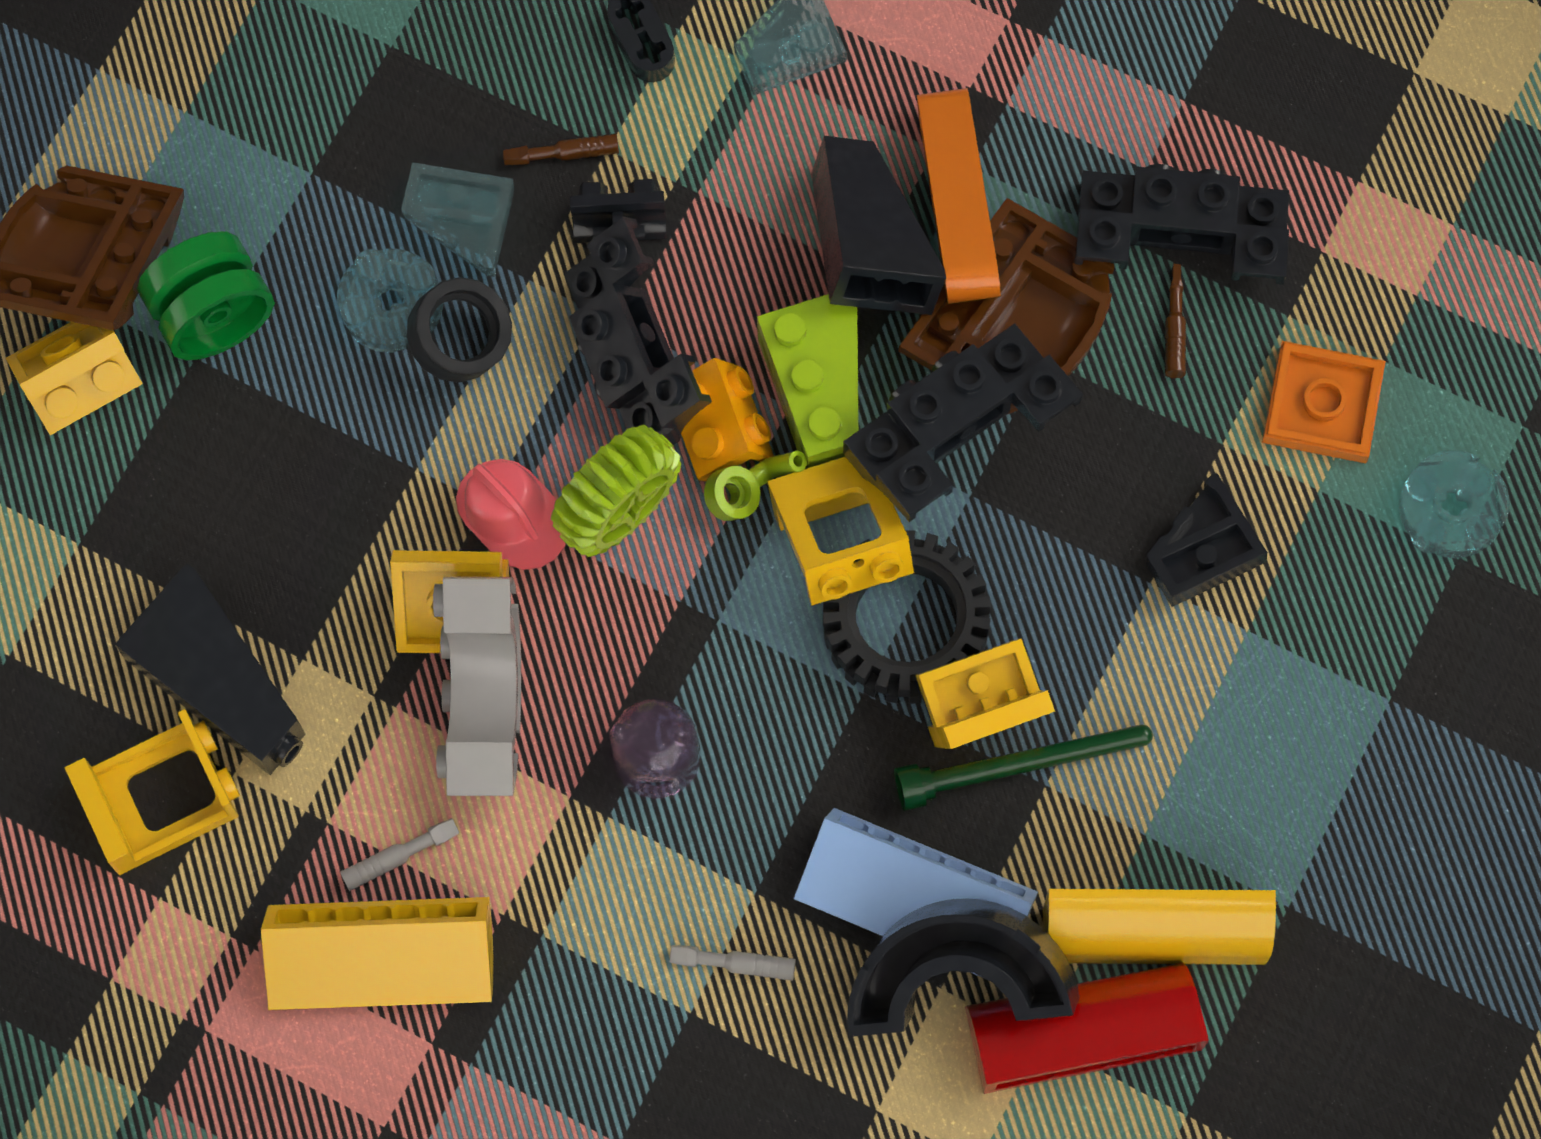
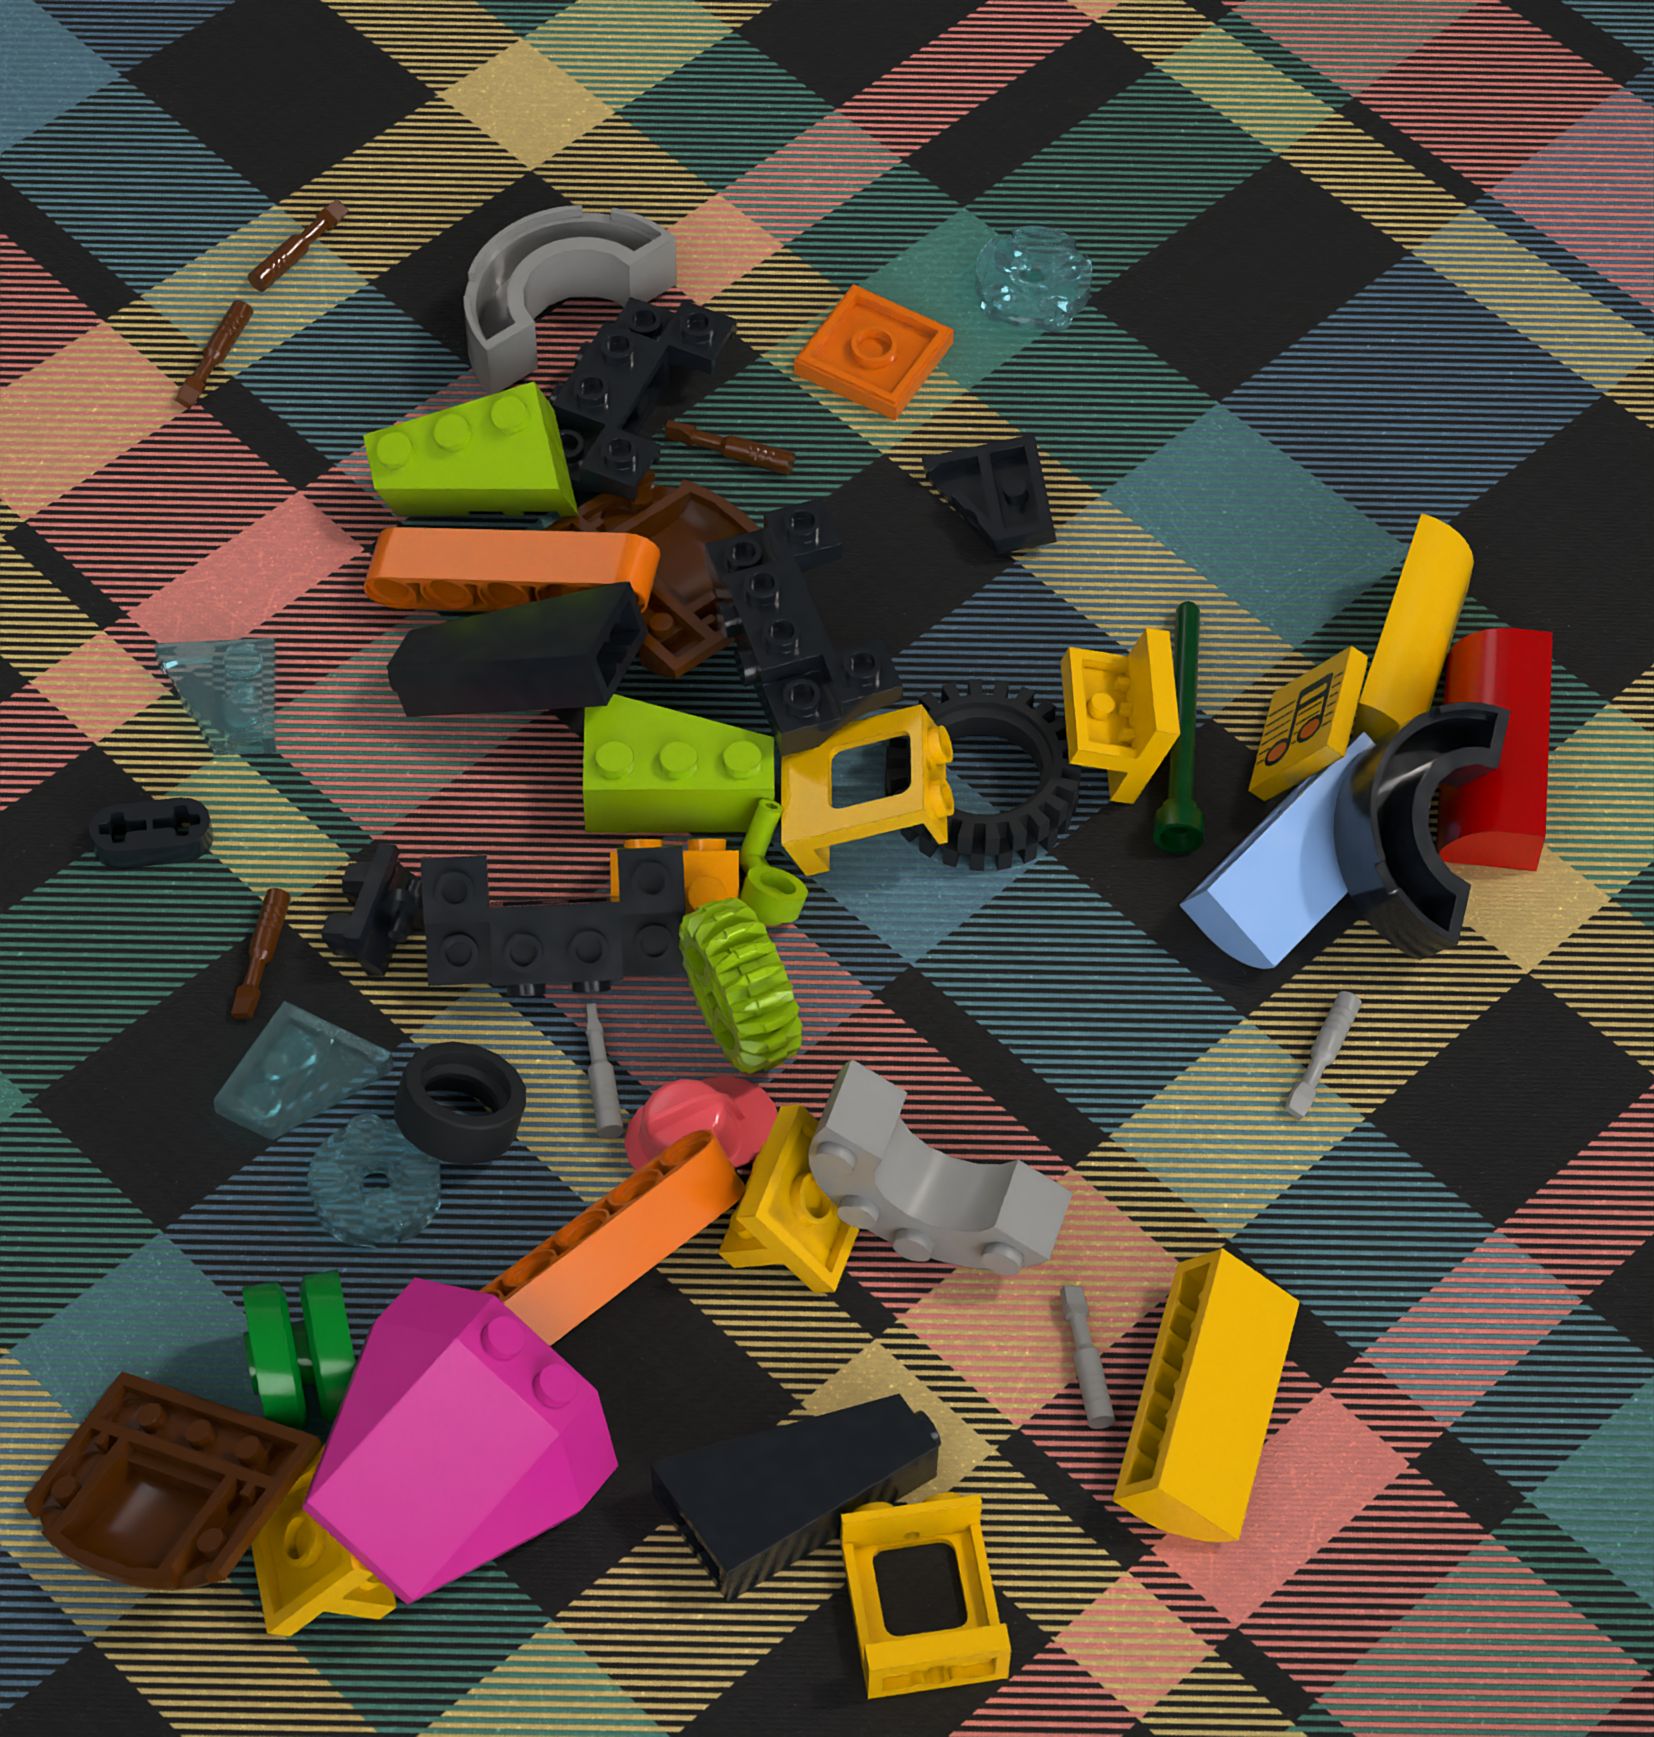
camera: 75 degrees left, 15 degrees down
(146, 417) = (455, 1441): none -> dark pink wedge
(359, 470) = (620, 1236): none -> orange beam
(534, 425) = (602, 1080): none -> light grey piece
(655, 744) = (1052, 1046): clear purple piece -> none
(1036, 859) = (1309, 724): none -> yellow tile
(1056, 132) = (475, 457): none -> lime wedge
(1275, 100) = (547, 261): none -> light grey brick

